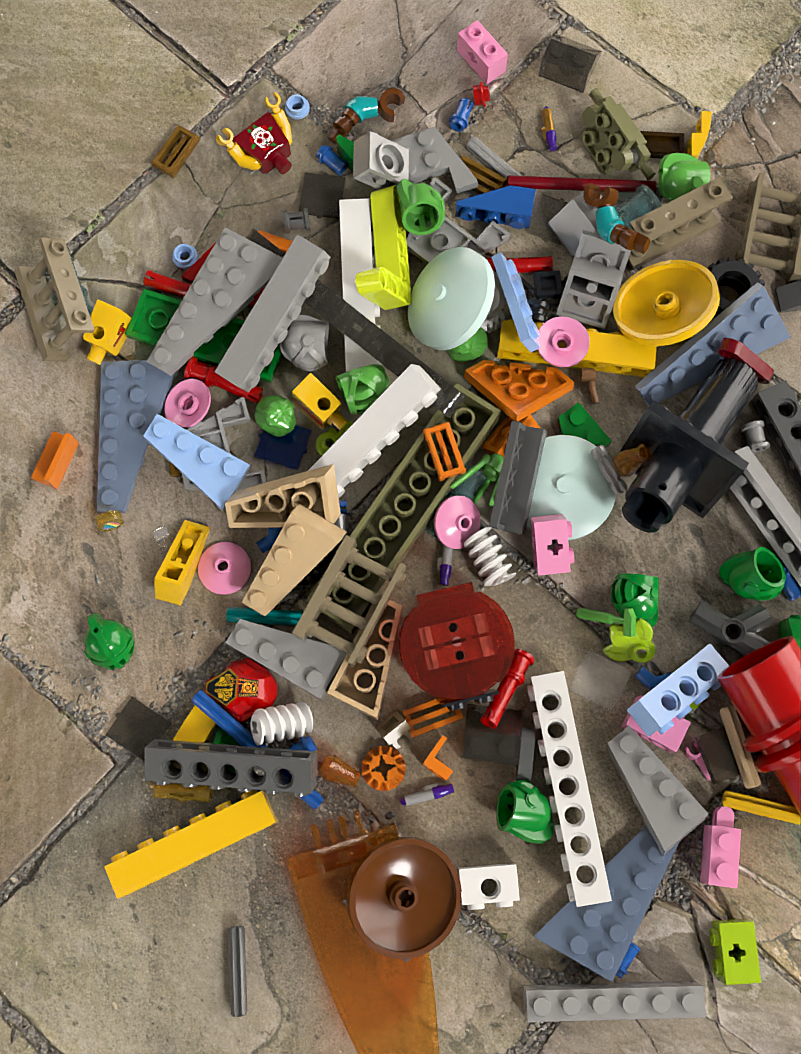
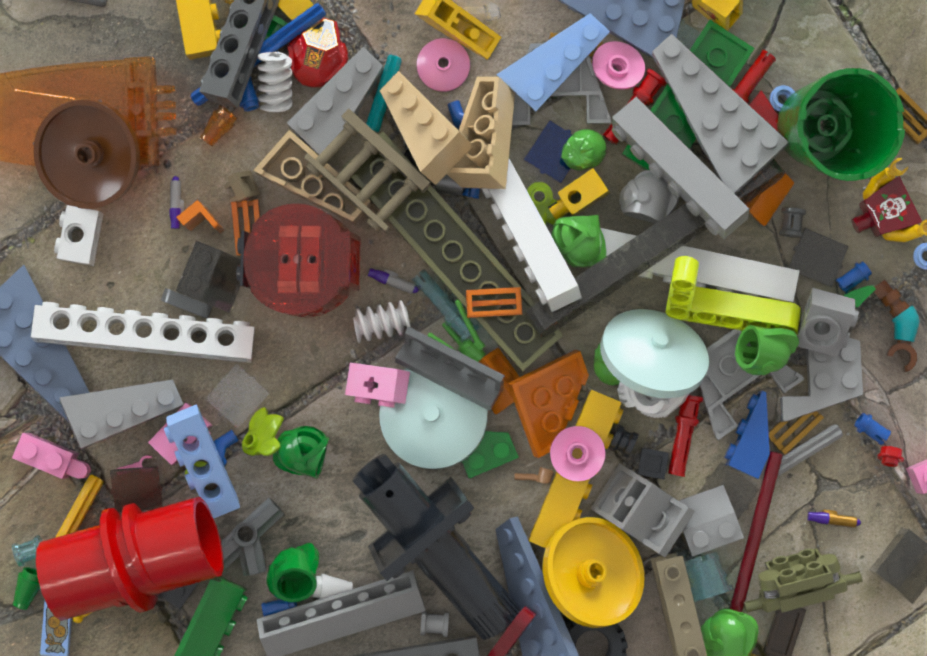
camera: 105 degrees right, 10 degrees up
(198, 180) = (859, 124): none -> green cone
(394, 776) = (218, 177): orange gear -> none
(448, 521) = (432, 294): bright pink dish -> none
(515, 678) = (259, 312): red pin -> none
(517, 301) = (636, 420): light blue wing -> none
(528, 816) = (132, 285): green helmet -> none
(608, 222) = (689, 535): reddish brown piece -> none
(609, 470) = (434, 461): light grey axle -> none
(628, 621) = (280, 433): bright green piece -> none
(630, 460) = (436, 482): clear orange cone -> none
(736, 738) = (144, 504): tan axle -> none
(753, 536) = (330, 586): none -> white cone

